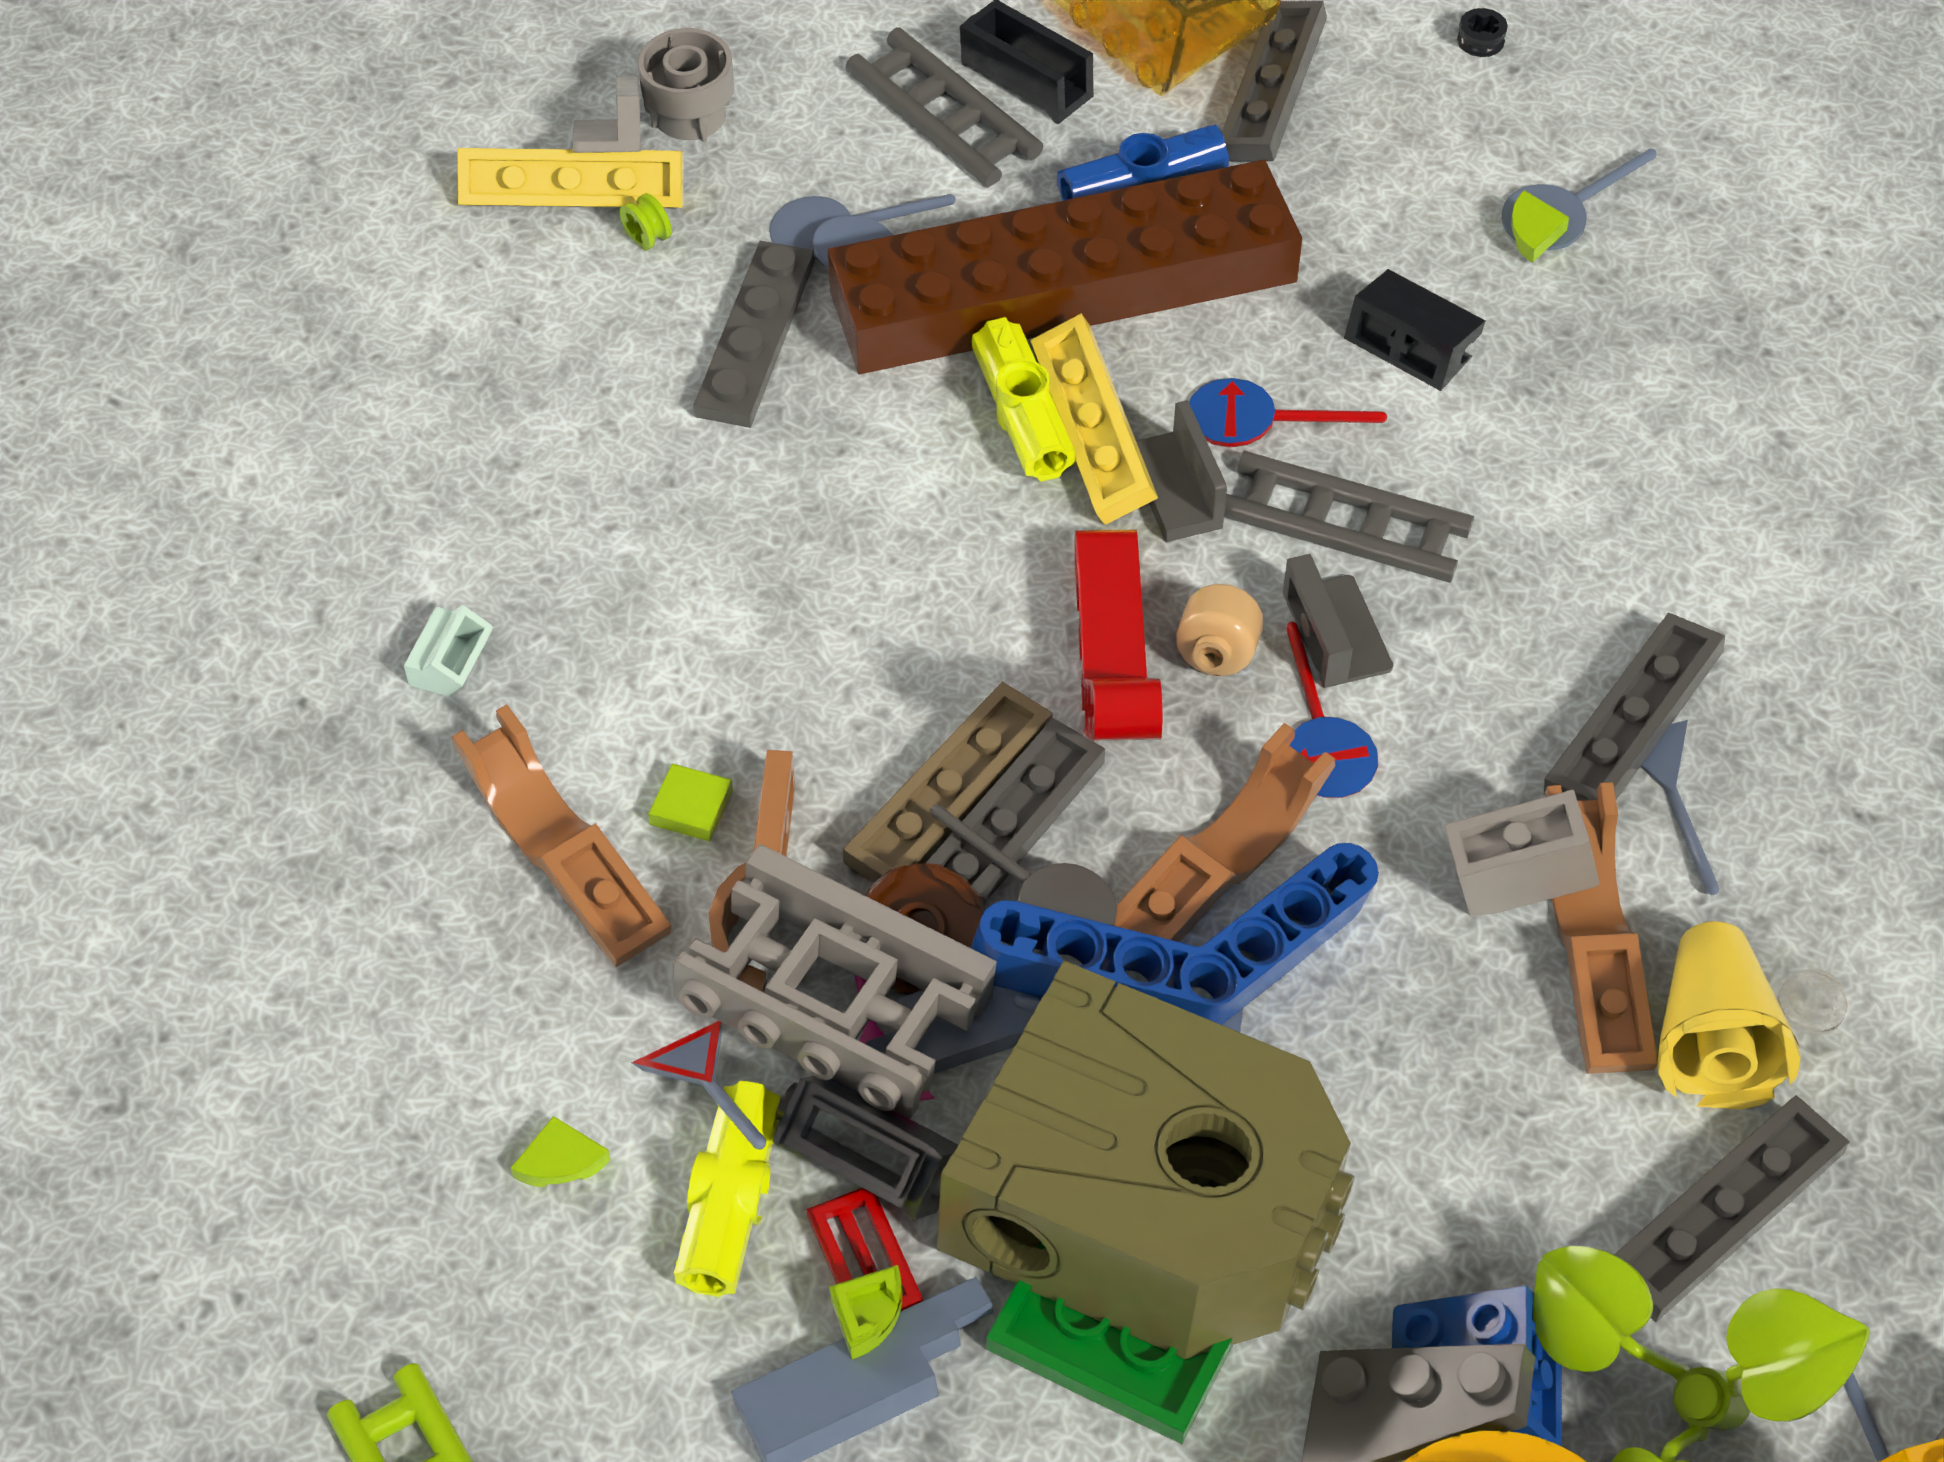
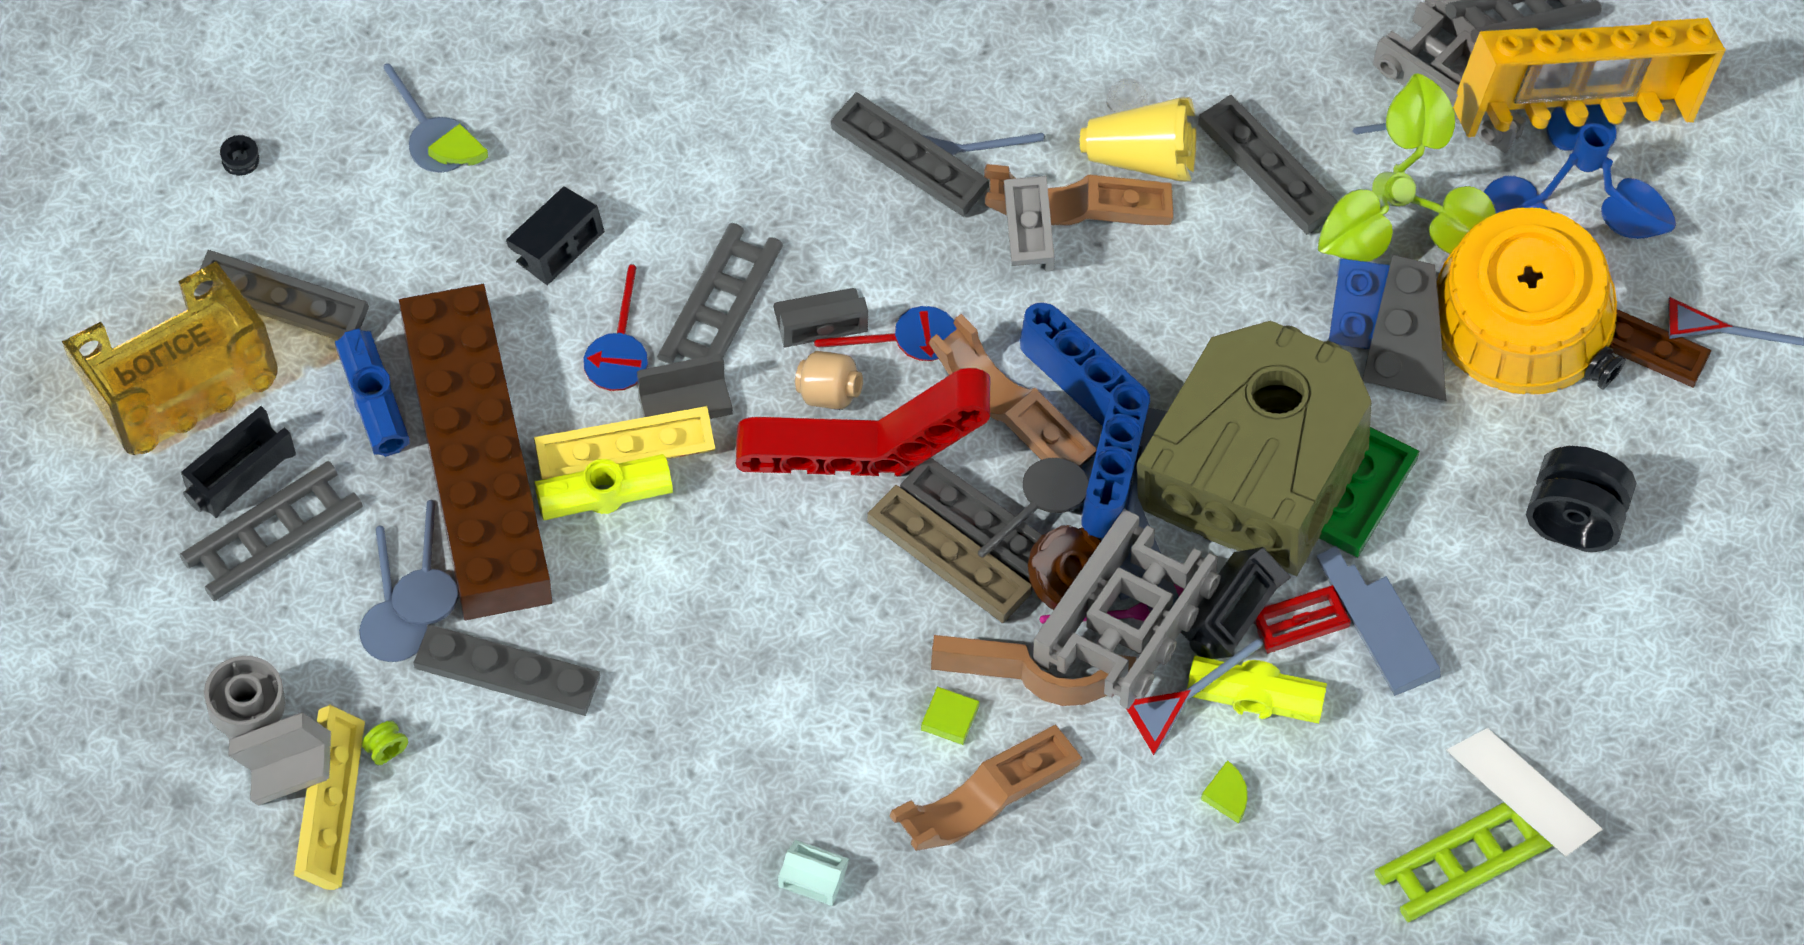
camera: 90 degrees left, 5 degrees up
(867, 1308) = (1344, 610): lime tile -> none

